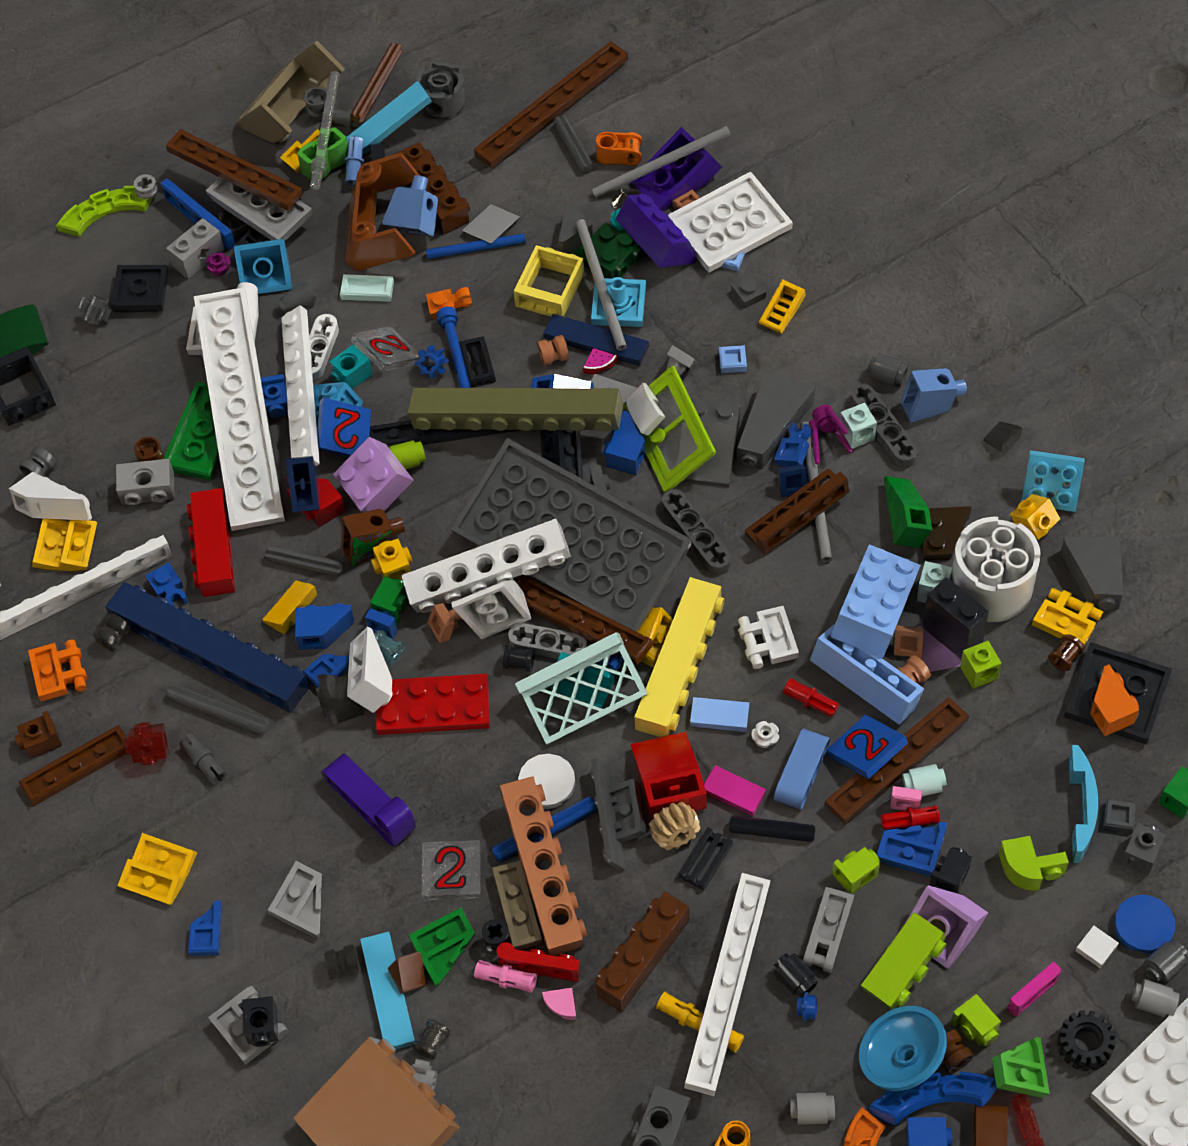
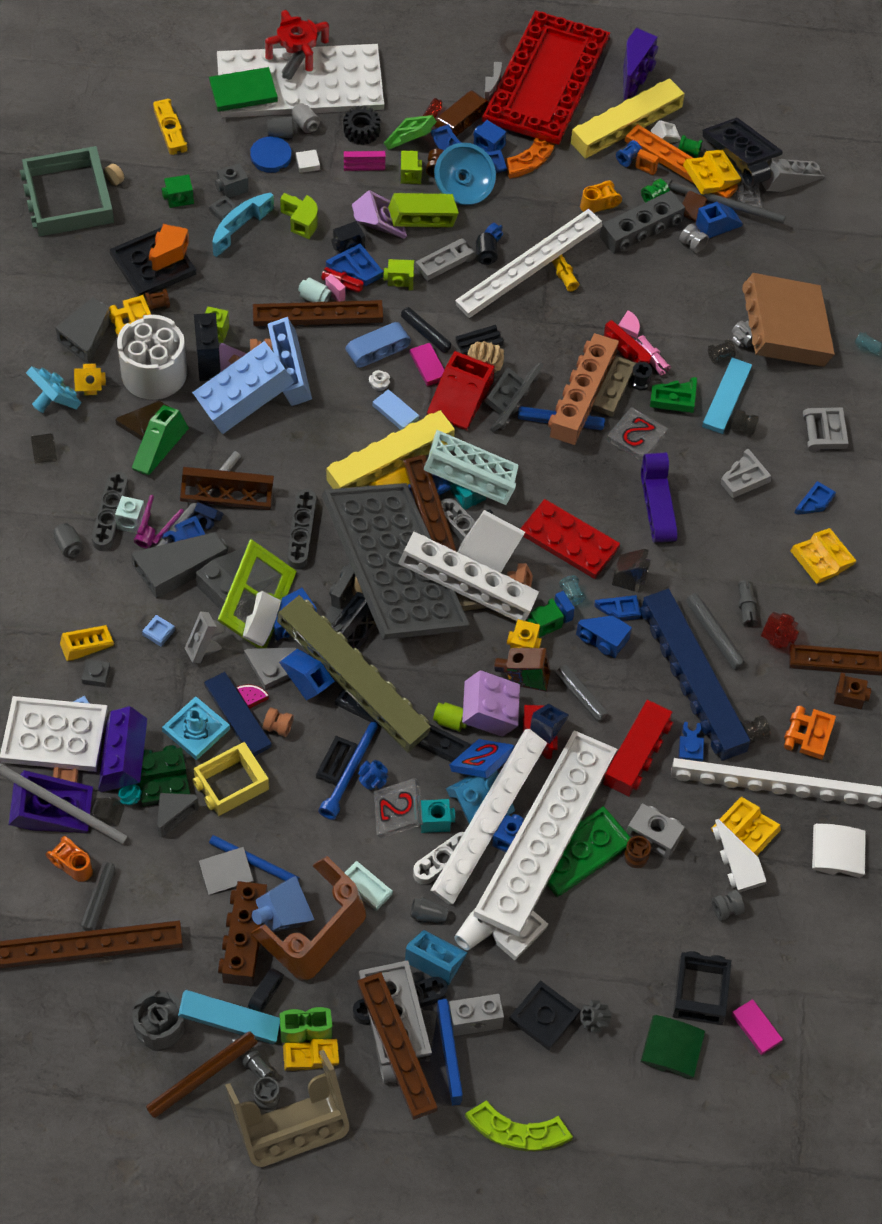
camera: 150 degrees left, 0 degrees up
(145, 193) = (469, 1104): light grey bush -> none
(218, 264) = (464, 988): magenta plate -> none
(257, 1009) = (819, 411): black brick -> none
(283, 613) = (615, 667): yellow slope -> none
(319, 165) = (327, 993): clear bar -> none
(353, 159) = (284, 1003): medium blue axle -> none
(368, 674) = (600, 569): white slope -> none
(408, 972) = (709, 392): reddish brown slope -> none
(445, 298) = (319, 827): orange plate -> none
(554, 775) = (535, 444): white tile -> none
(601, 285) = (199, 740): light grey piece -> none
(642, 951) = (562, 312): reddish brown brick -> none
(776, 634) = (316, 428): white plate -> none
(810, 697) = (332, 381): red axle -> none
(812, 1108) = (537, 186): light grey brick -> none
(867, 746) = (329, 327): blue tile -> none
(930, 393) = (62, 498): medium blue torso -> none
(931, 577) = (187, 383): light aqua brick -> none

